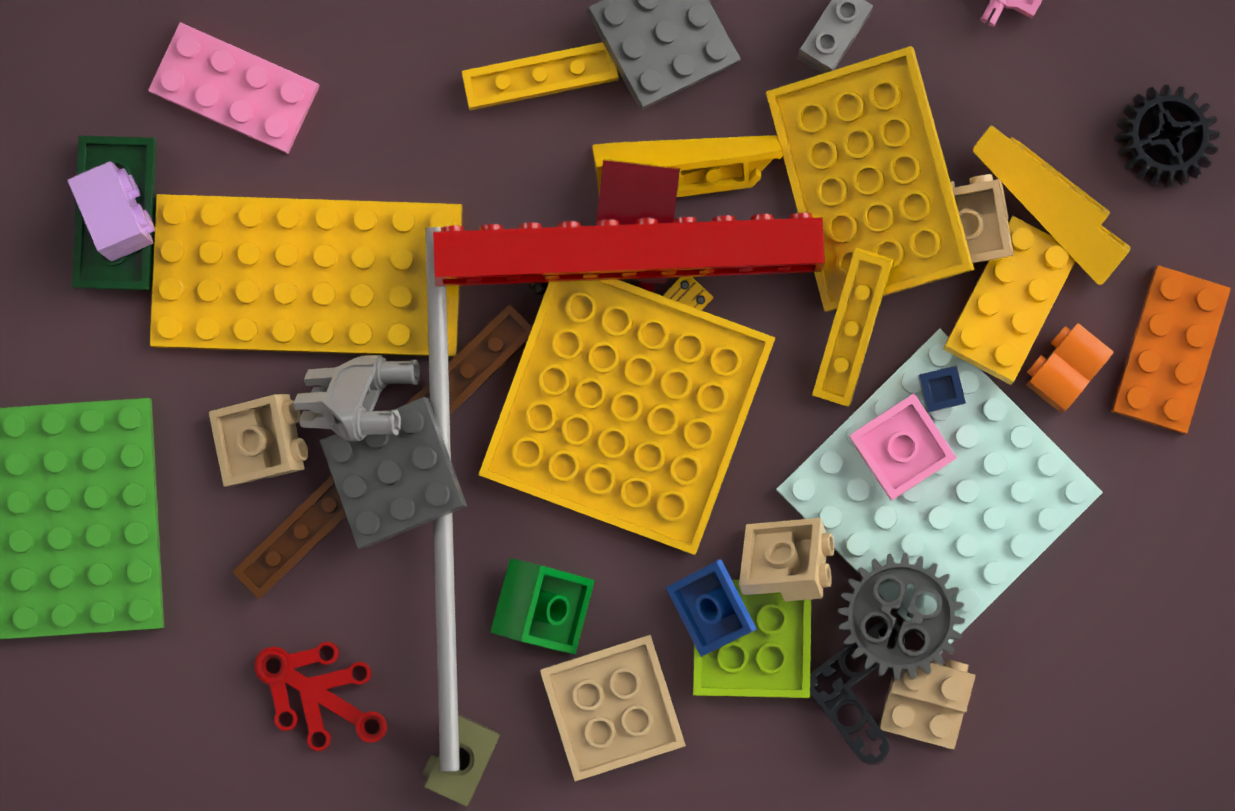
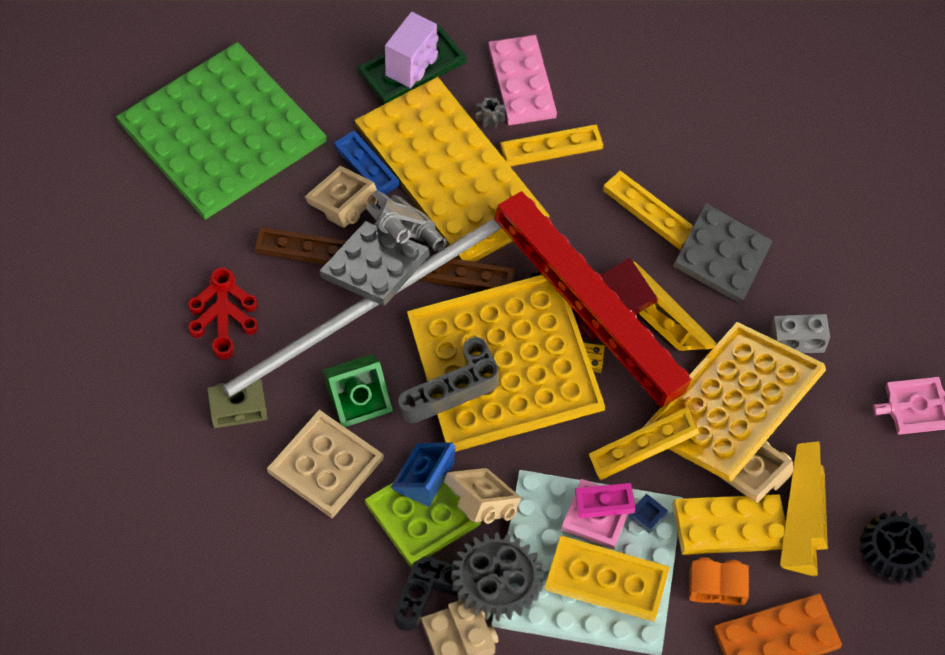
camera: 50 degrees right, 25 degrees down
(227, 376) = (366, 162): none -> blue plate
(256, 158) = (490, 112): none -> flat silver gear
(358, 124) = (551, 145): none -> yellow tile
(622, 502) = (447, 385): none -> dark grey beam
(901, 432) = (604, 500): none -> dark pink plate
(986, 494) = (607, 578): none -> yellow plate

